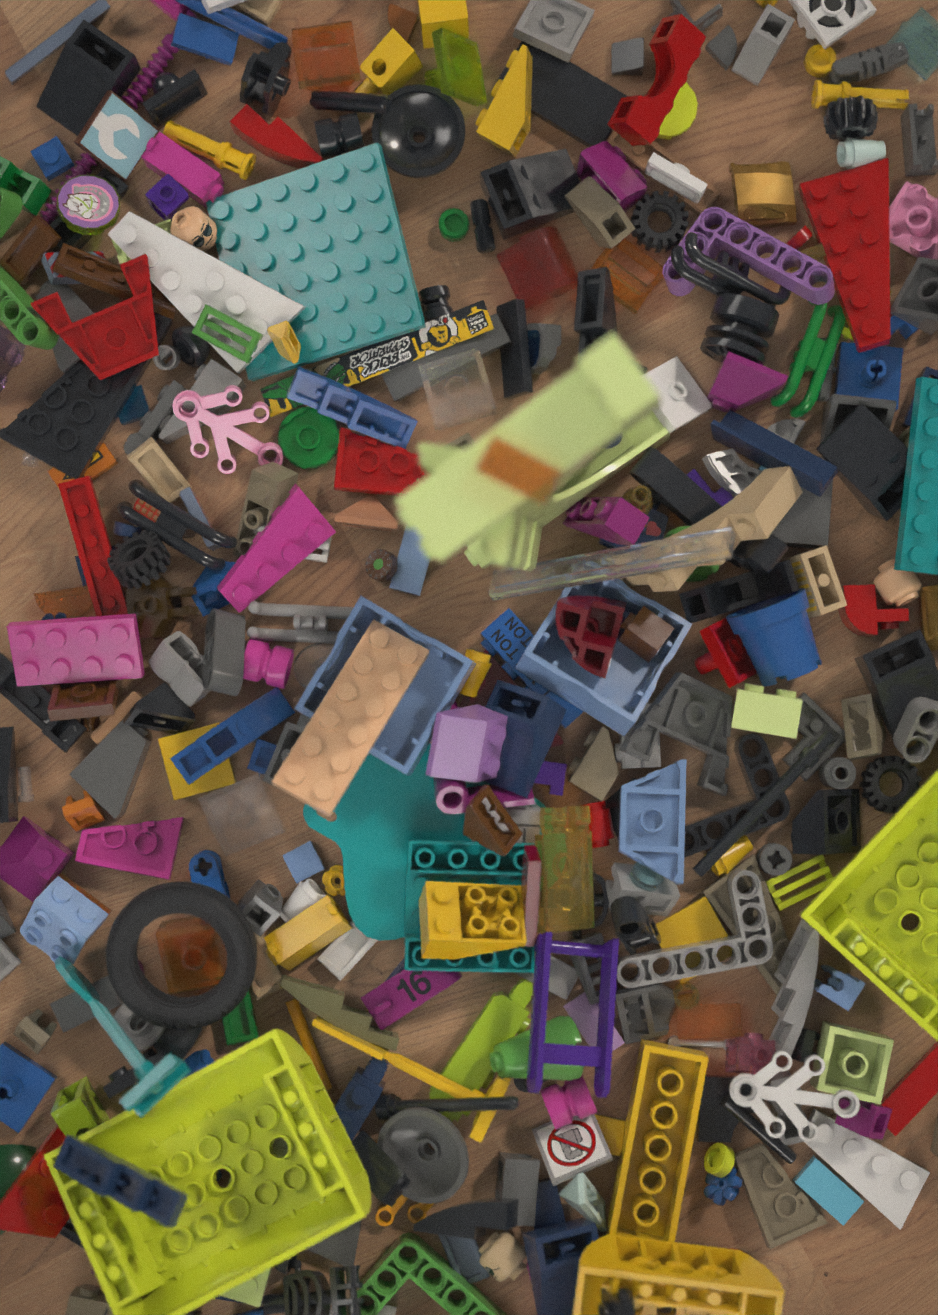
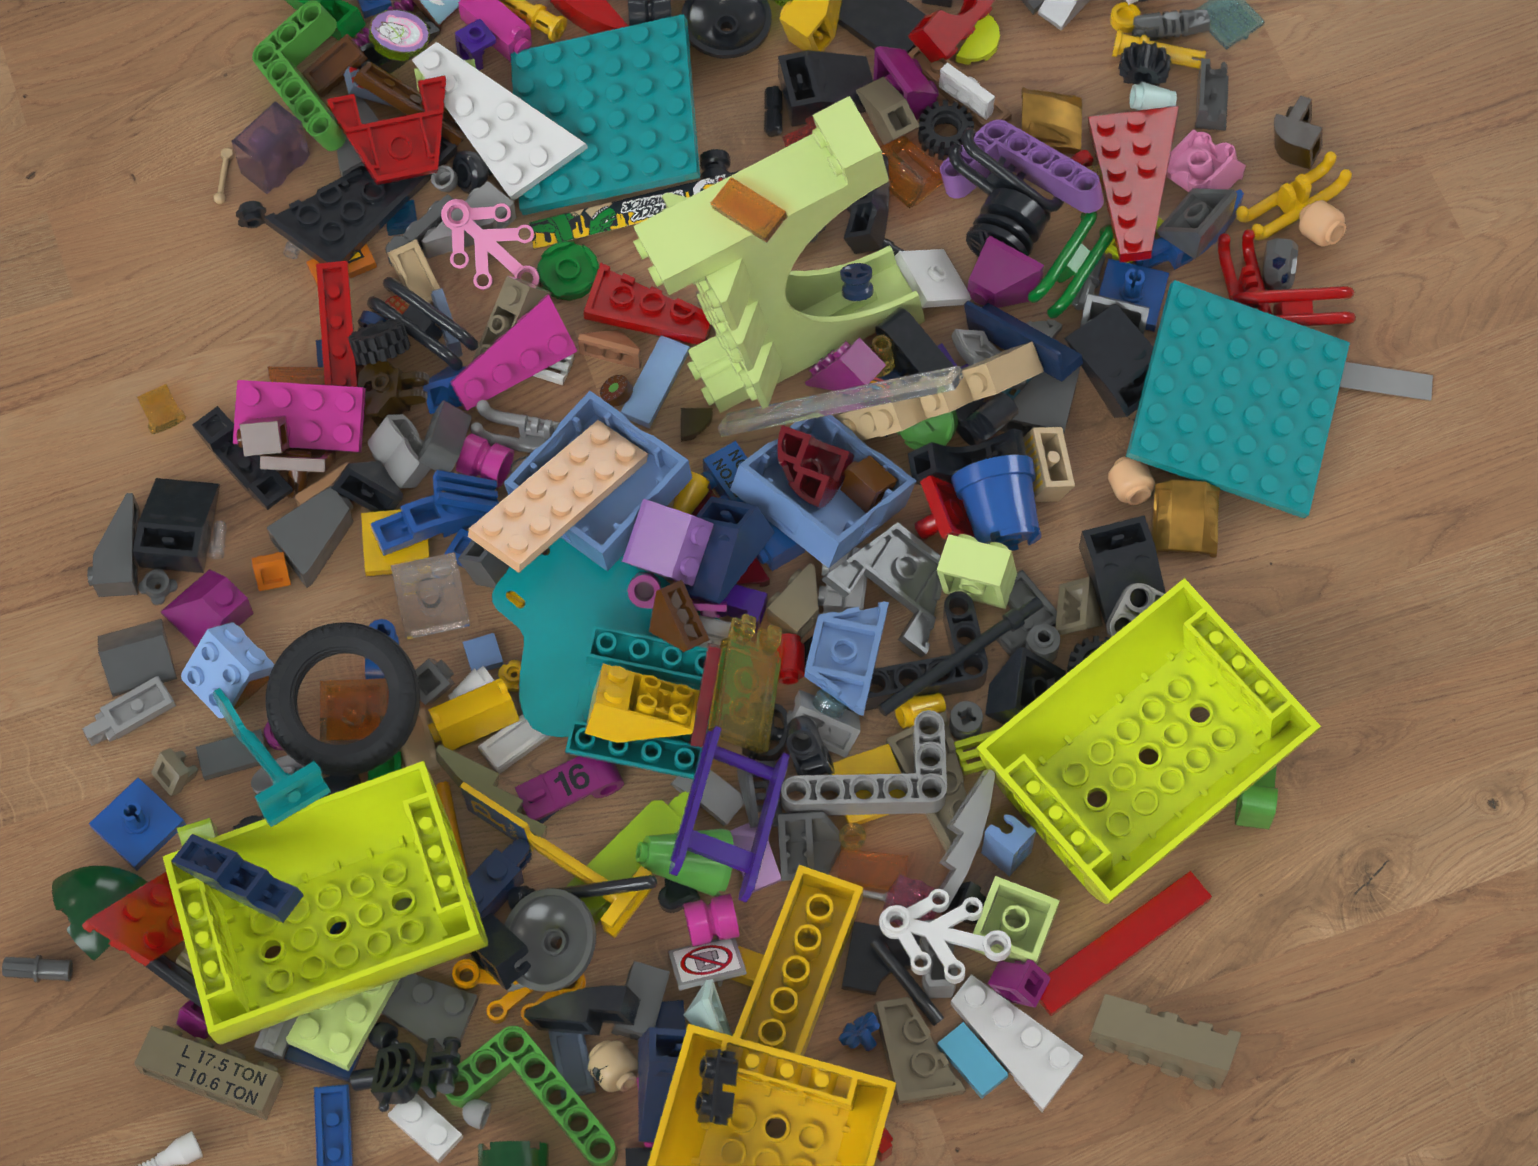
camera: 10 degrees right, 20 degrees down
(46, 684) = (263, 436): none -> brick
(133, 848) = (304, 610): dark pink wing -> none
(194, 228) = (497, 67): light nougat head -> none
(251, 346) = (527, 171): bright green tile -> none
(279, 704) = (465, 487): none -> blue tile
(285, 341) = (561, 170): yellow slope -> none
(352, 408) = (605, 241): blue slope -> none
(453, 225) = (746, 107): green tile -> none
(462, 585) = (694, 422): none -> dark brown tile
(719, 1160) = (859, 1005): neon yellow tile -> none
(862, 615) = (1092, 506): red brick -> none

